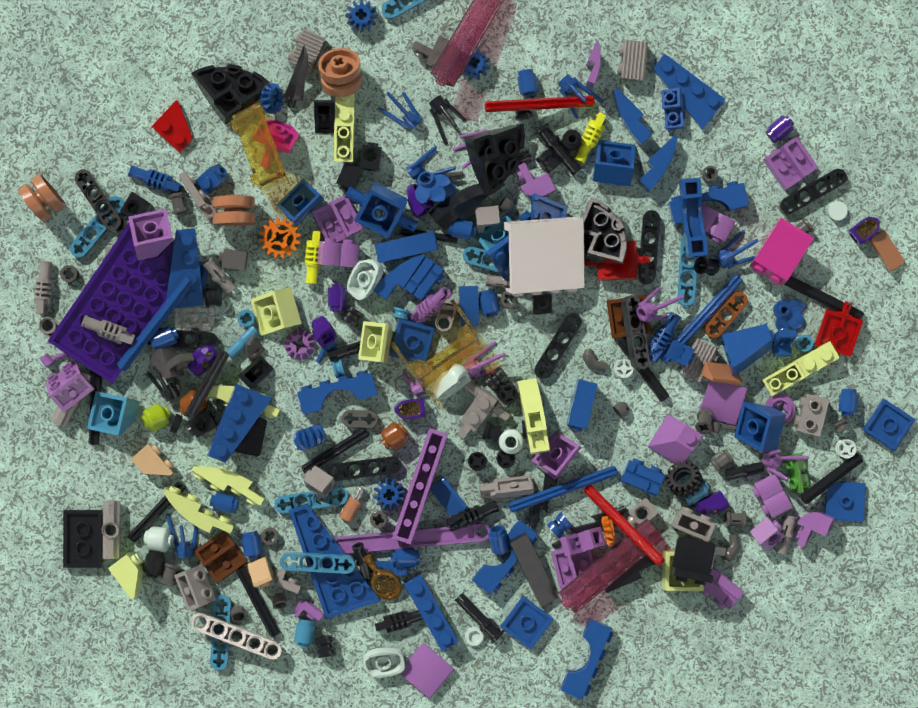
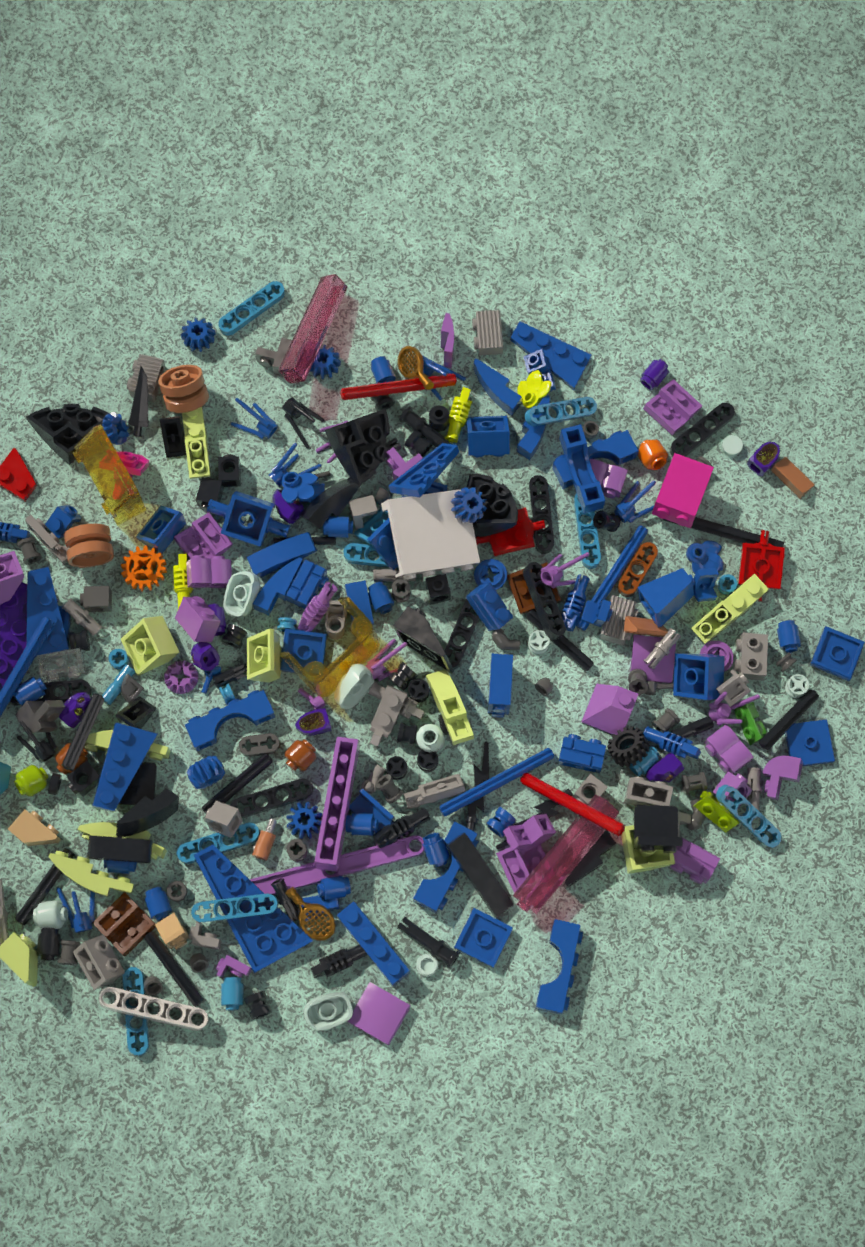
camera: 10 degrees left, 15 degrees down
(225, 496) = (119, 849): none -> black beam
(254, 467) = (148, 813): none -> black slope
(322, 298) = (197, 619): none -> medium lavender brick
(438, 507) = (361, 824): none -> blue brick
(453, 470) = (369, 784): none -> light grey arm
(467, 479) = (388, 788): none -> dark grey bush
(515, 342) = (417, 632): none -> black slope
(546, 199) = (425, 472): none -> blue wing
(560, 455) = (484, 747): medium lavender slope -> none
(562, 84) = (418, 371): none -> pearl gold piece
(585, 292) = (496, 567): none -> blue gear
(585, 330) = (489, 606): none -> blue brick
(586, 244) = (475, 502): none -> blue gear
(608, 531) = (556, 816): orange gear -> none
(664, 125) = (533, 389): none -> neon yellow plate
(685, 151) = (561, 413): none -> dark azure beam
(723, 482) = (672, 743): none -> blue hinge
(732, 396) = (662, 648): none -> light grey pin
(755, 554) = (715, 812): none -> lime hinge
(762, 208) = (652, 454): none -> orange head
(776, 560) = (750, 814): none -> dark azure beam
(789, 444) = (735, 688): none -> light grey bracket

